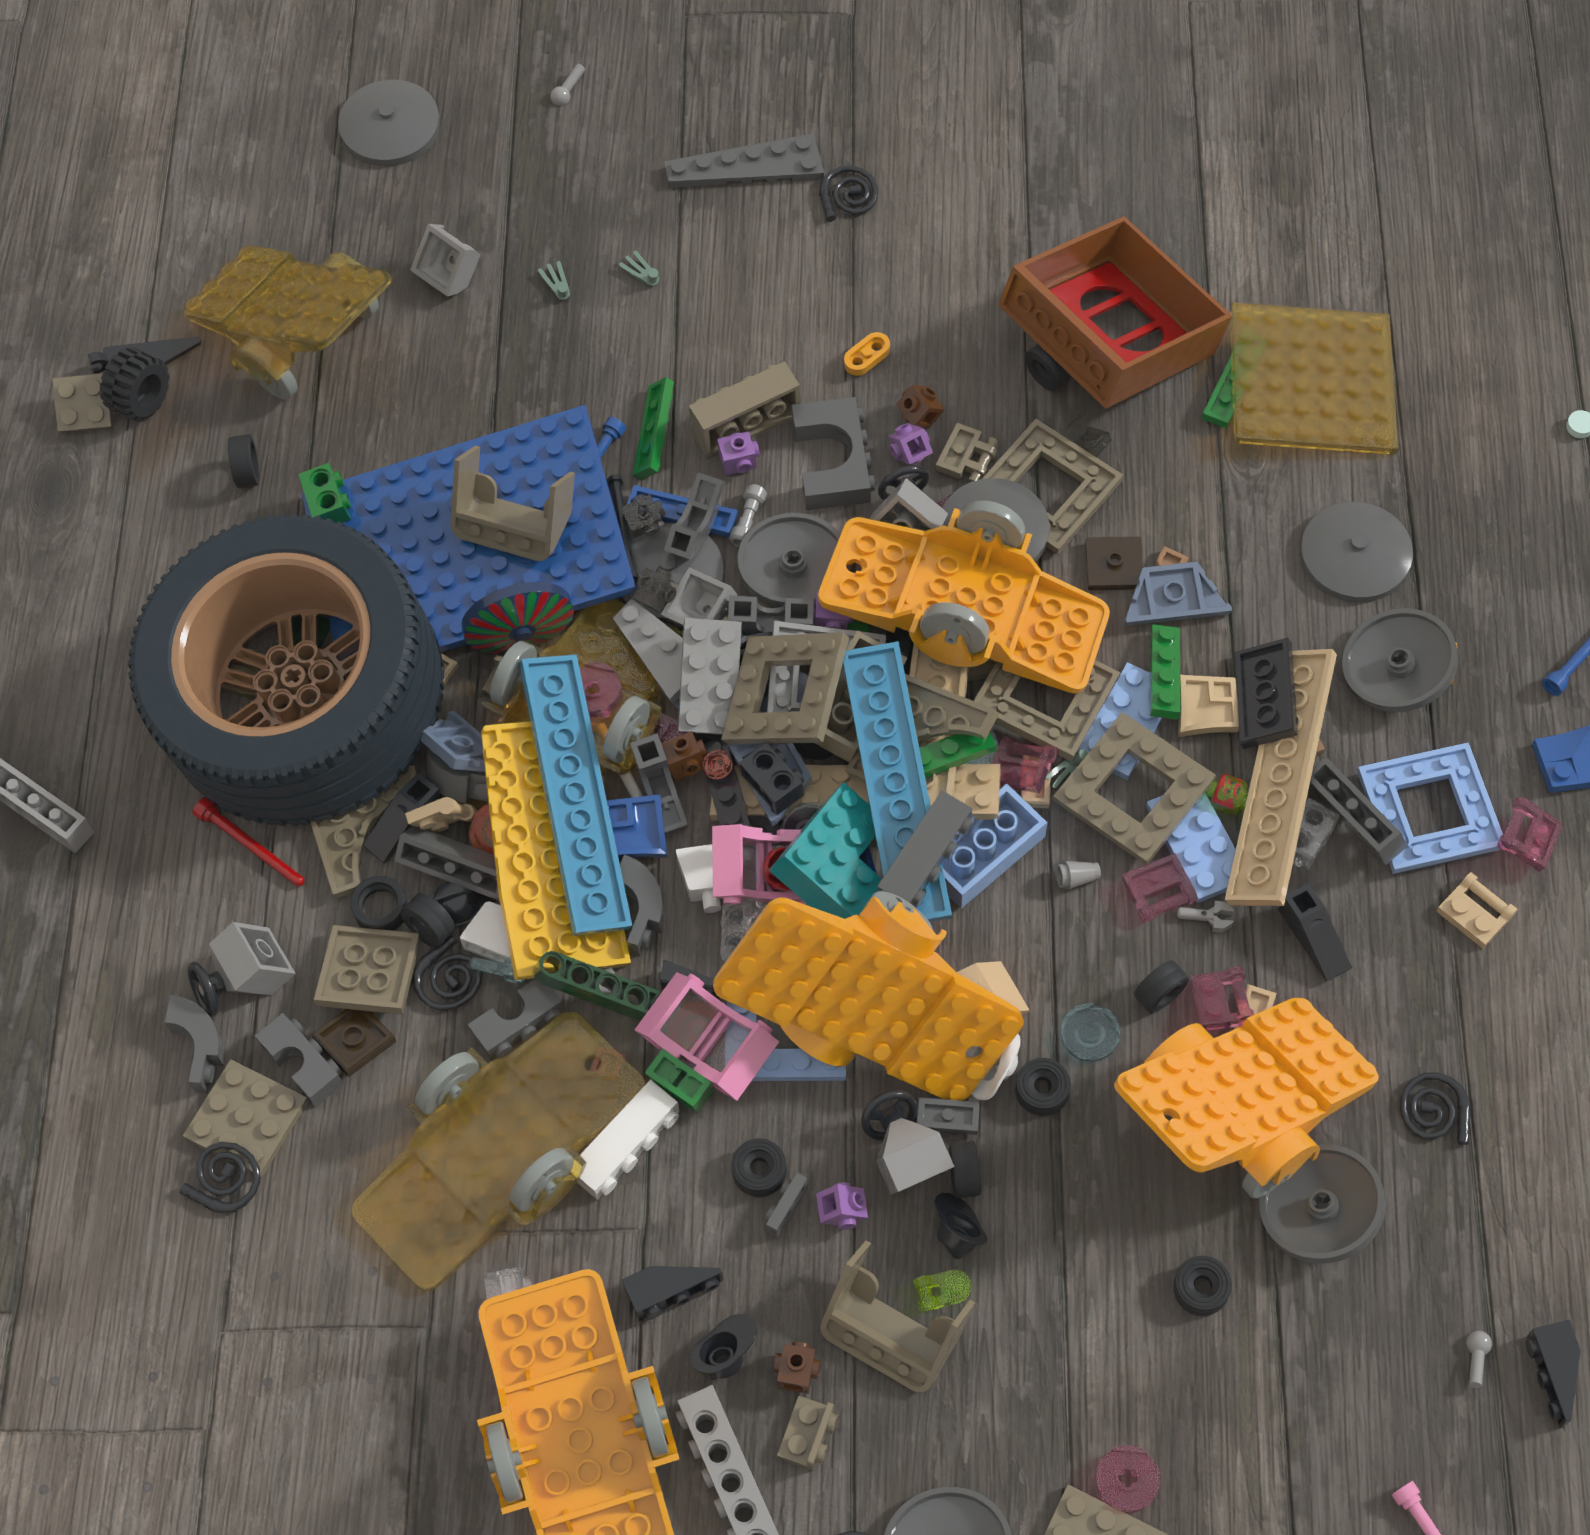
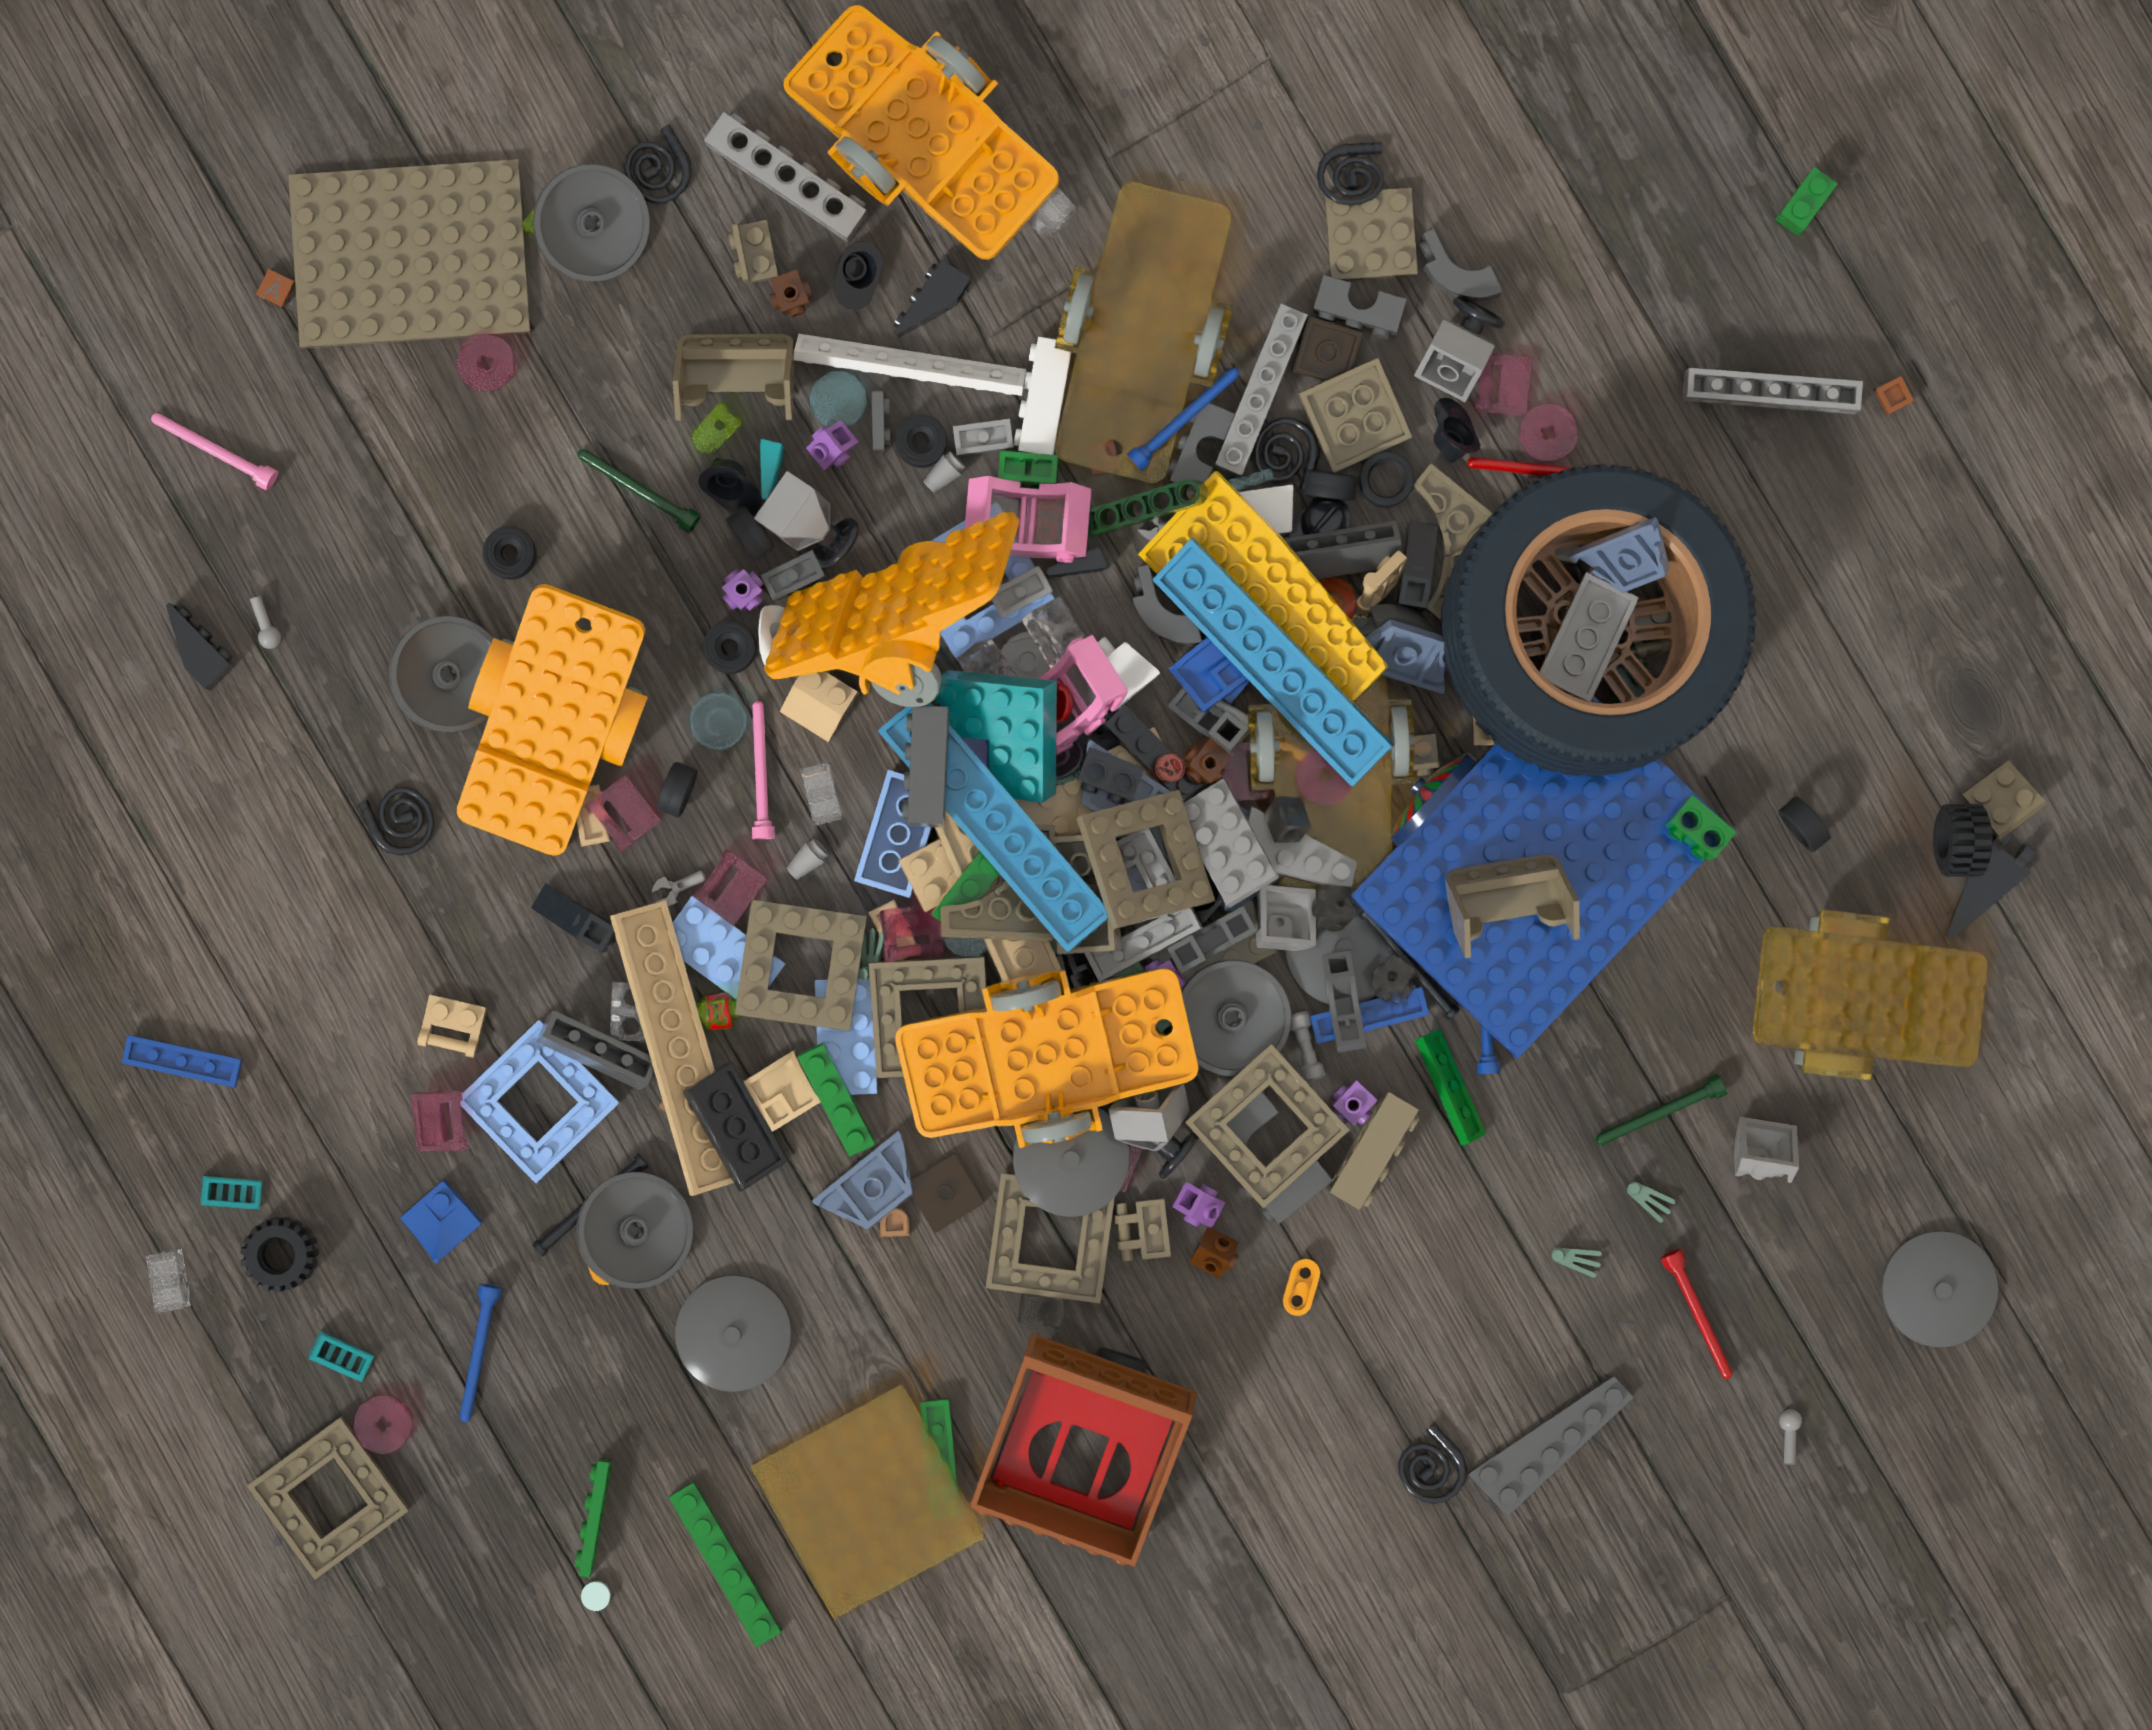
camera: 145 degrees right, 25 degrees up
(220, 916) = (1512, 386): none -> clear pink plate
(224, 690) = (1627, 557): none -> sand blue wing
(225, 881) = (1549, 449): none -> clear pink plate
(296, 908) = (1455, 431): none -> black piece
(303, 662) = (1587, 637): none -> light grey plate
(430, 1036) = (1260, 391): none -> light grey brick
(453, 327) = (1712, 1088): none -> dark green piece
(568, 230) = (1675, 1264): none -> red piece
(571, 1035) = (1142, 454): none -> blue piece
(646, 669) = (1287, 819): none -> clear smoke brick
(701, 1138) = (983, 437): none -> light grey plate
(727, 1241) = (909, 364): none -> white plate
(753, 1127) = (944, 472): none -> light grey cone
(792, 502) = (1270, 1180): none -> dark tan plate
(811, 1250) = (838, 398): none -> clear light blue tile
(906, 1228) = (770, 462): none -> teal slope
(997, 1134) = (751, 598): none -> medium lavender brick
(1017, 1222) = (685, 518): none -> dark green piece
(1032, 916) = (821, 794): none -> clear brick
(1101, 920) = (763, 827): none -> bright pink piece
(1441, 703) = (567, 1224): none -> black bar
(1458, 395) = (725, 1564): none -> green plate
(1547, 482) = (591, 1529): none -> green plate

